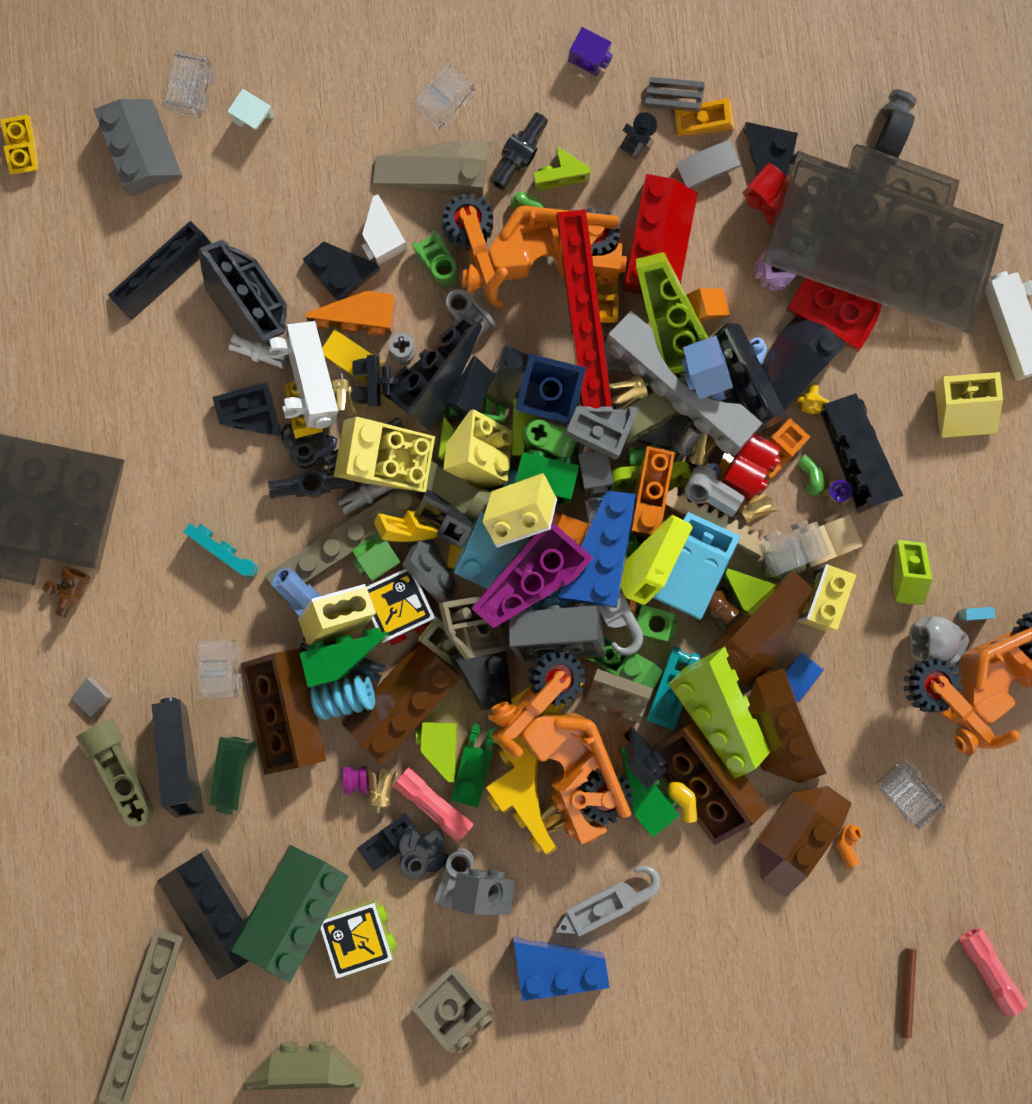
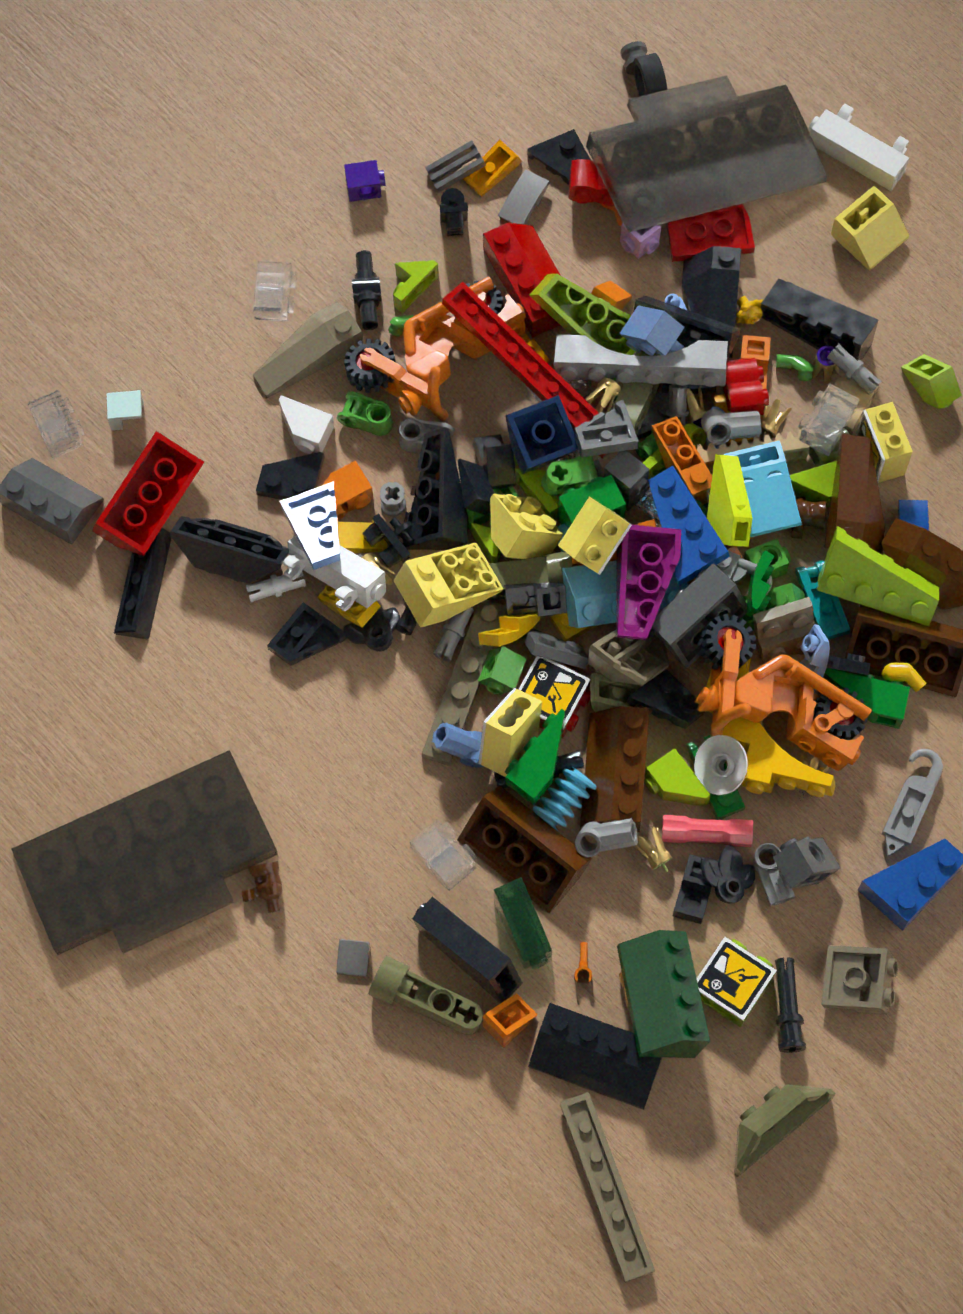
camera: 30 degrees left, 15 degrees down
(167, 836) = (508, 1019): none -> orange slope
(211, 201) = (148, 495): none -> red slope
(222, 550) = (371, 759): teal plate -> none
(256, 837) = (583, 963): none -> orange hand
(296, 485) = (393, 664): black pin -> none
(315, 328) = (315, 524): none -> wing
(342, 749) = (608, 836): none -> light grey piece
(355, 780) = (628, 859): magenta wheel -> none
(377, 999) = (789, 1019): none -> black pin
(471, 763) = (710, 764): none -> white dish
(615, 653) = (758, 587): none -> green slope
(624, 735) = (816, 650): none -> light blue slope
(851, 520) = (854, 369): none -> light grey pin

